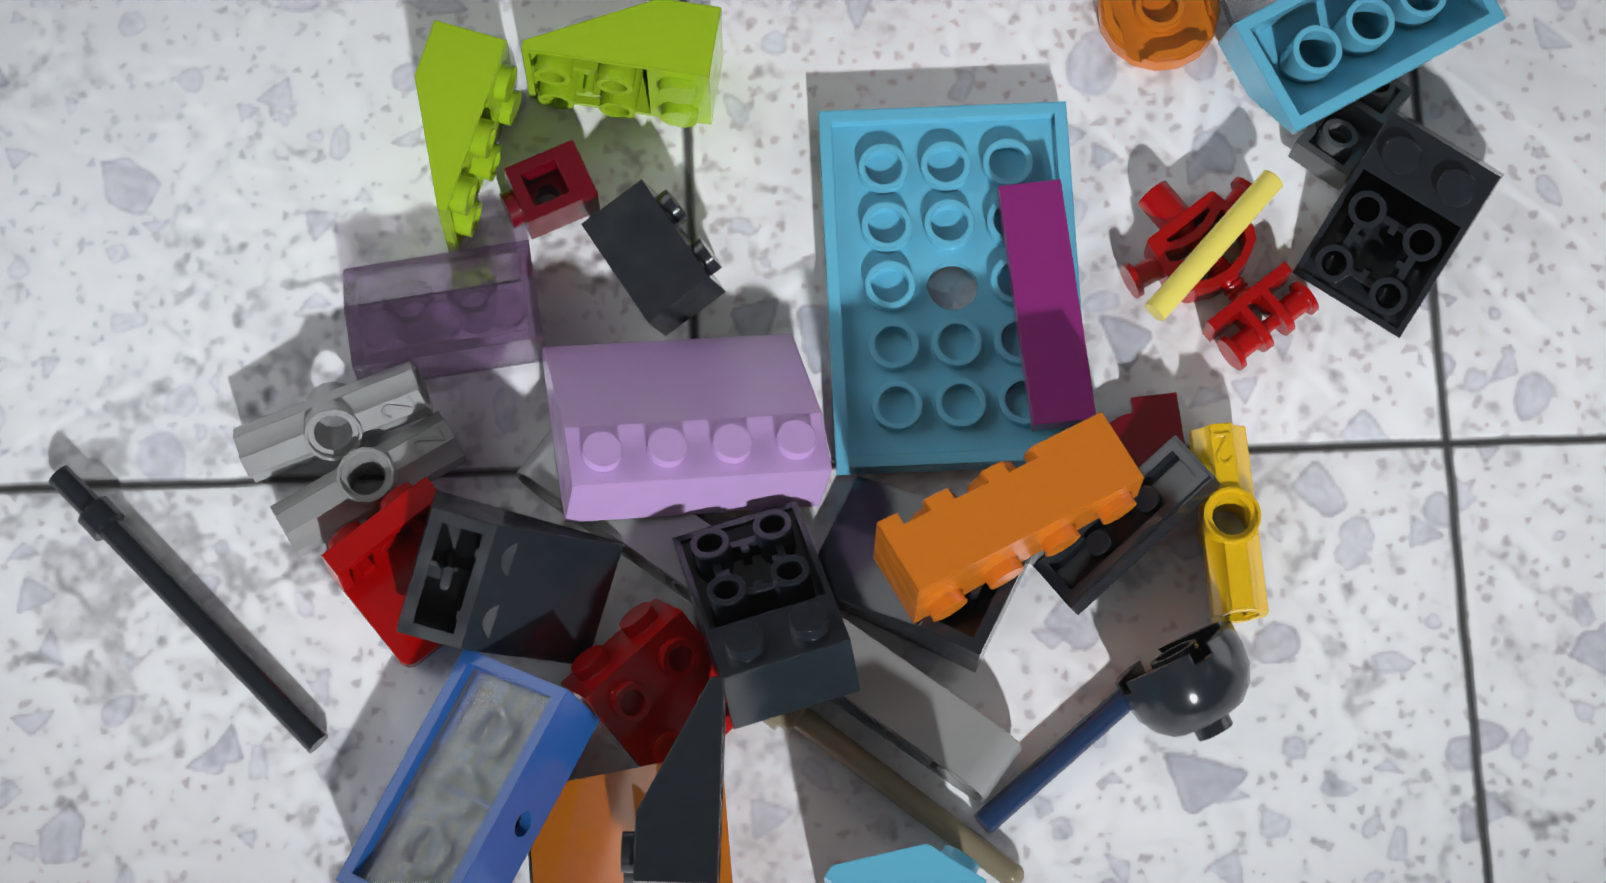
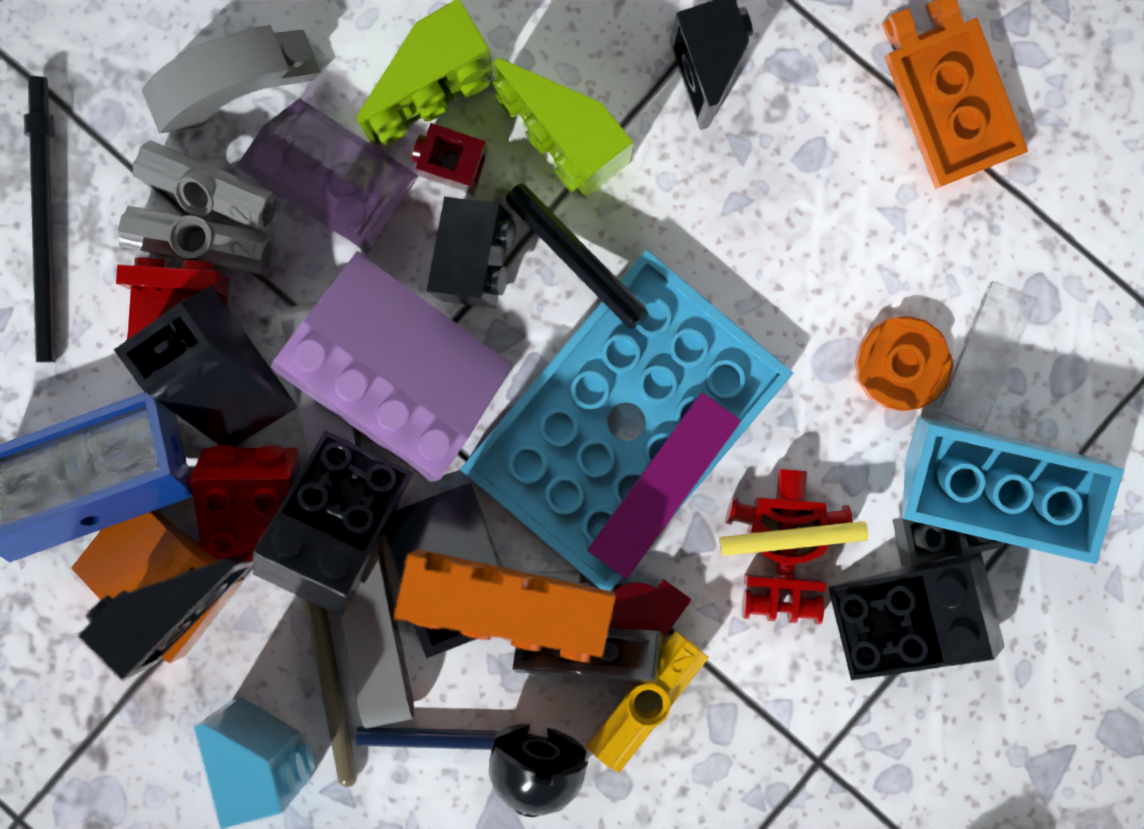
camera: 45 degrees right, 15 degrees up
(251, 300) = (224, 69): none -> light grey arch
(759, 172) = (576, 256): none -> black axle

